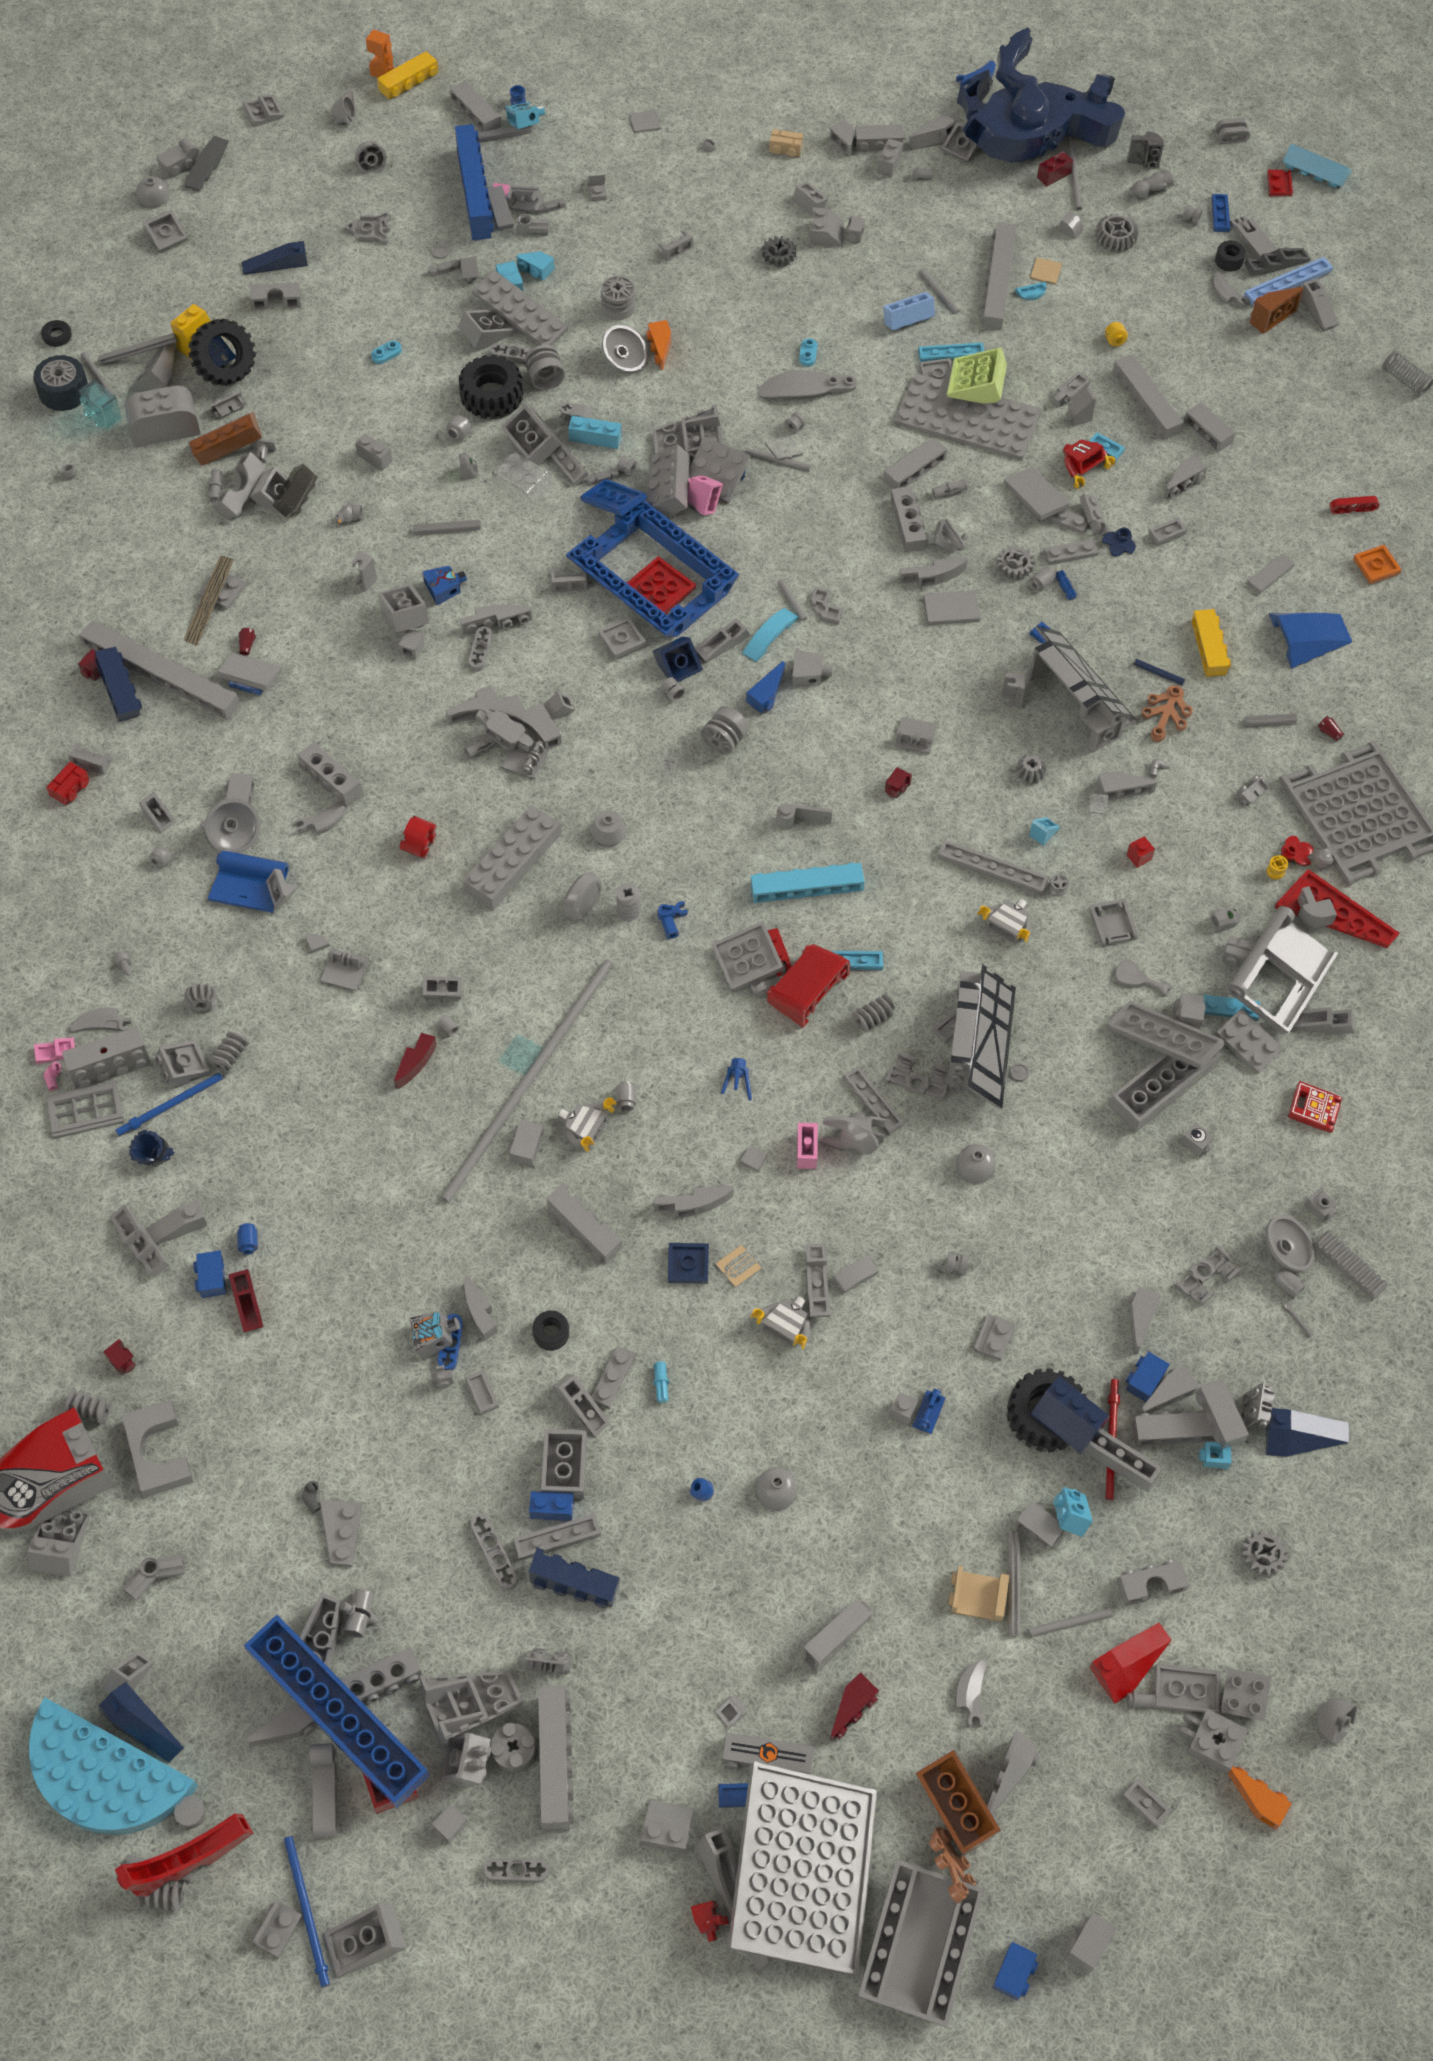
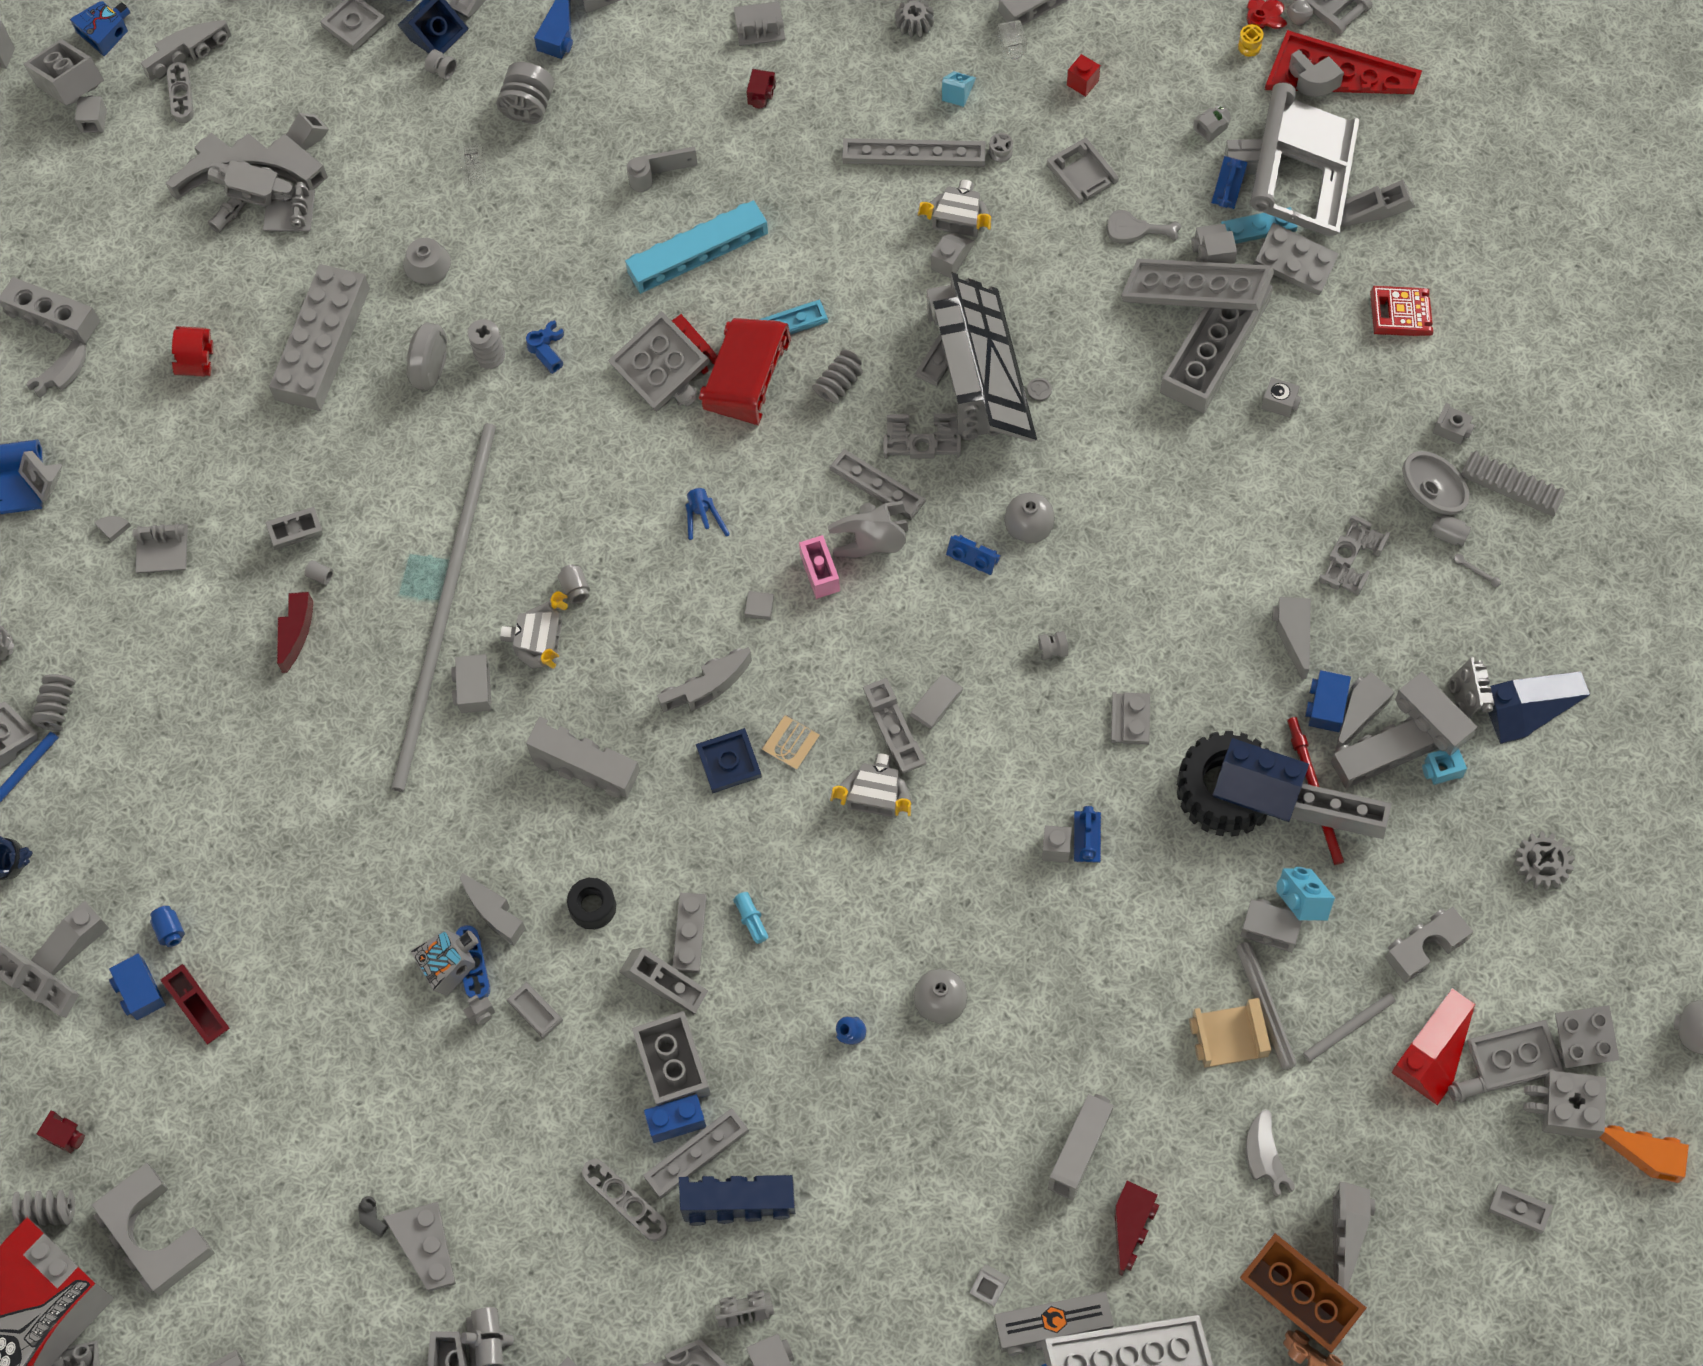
camera: 15 degrees left, 5 degrees up
(919, 1171) = (967, 552): none -> blue hinge
(992, 950) = (950, 253): none -> light grey slope
(1220, 967) = (1229, 182): none -> blue hinge

